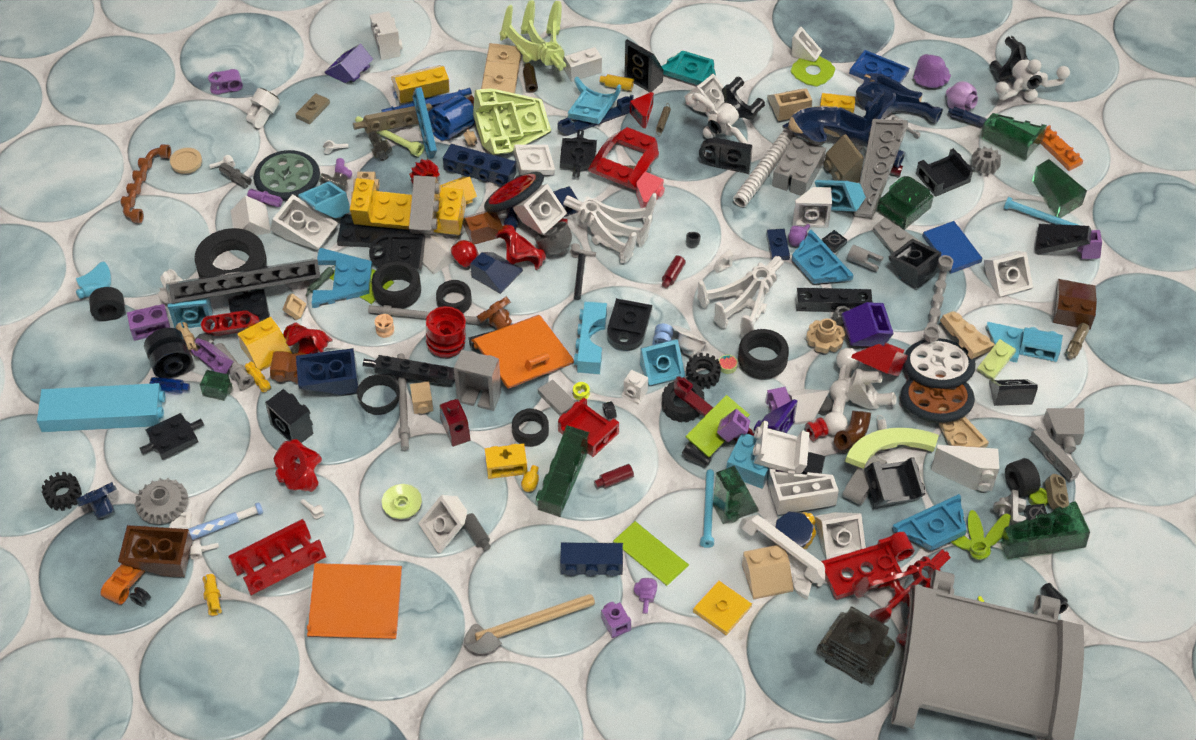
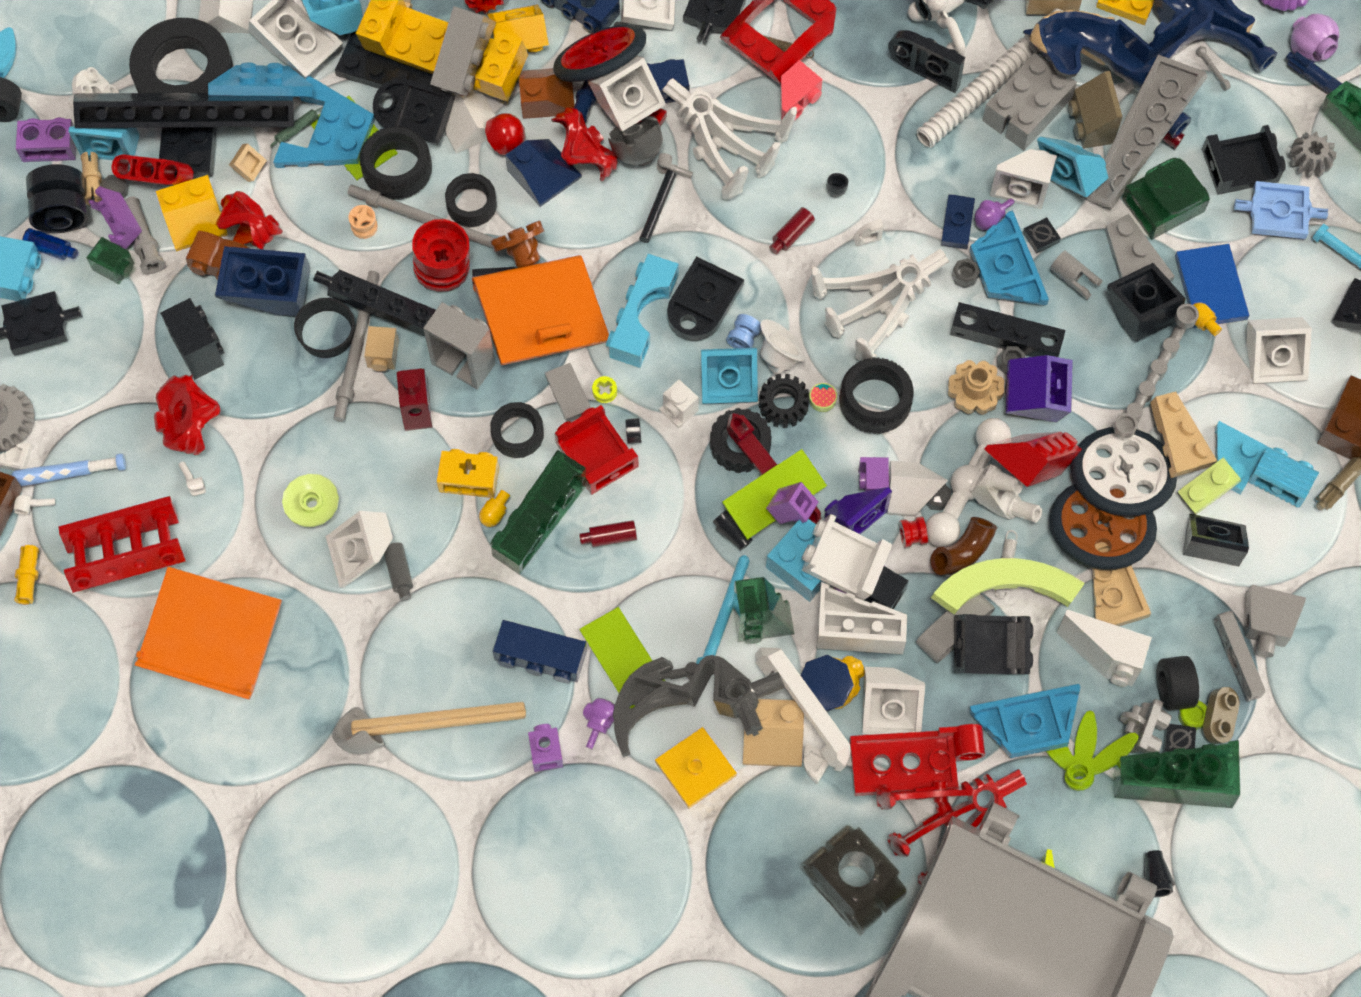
camera: 15 degrees right, 15 degrees up
(258, 377) = (171, 259): yellow axle -> none
(295, 253) = (260, 80): none -> dark azure wing
(680, 559) = (649, 692): none -> dark grey piece
(794, 272) = (965, 272): none -> dark grey tile
(958, 264) = (1207, 319): none -> yellow cylinder
(978, 195) = (1280, 210): none -> light blue plate

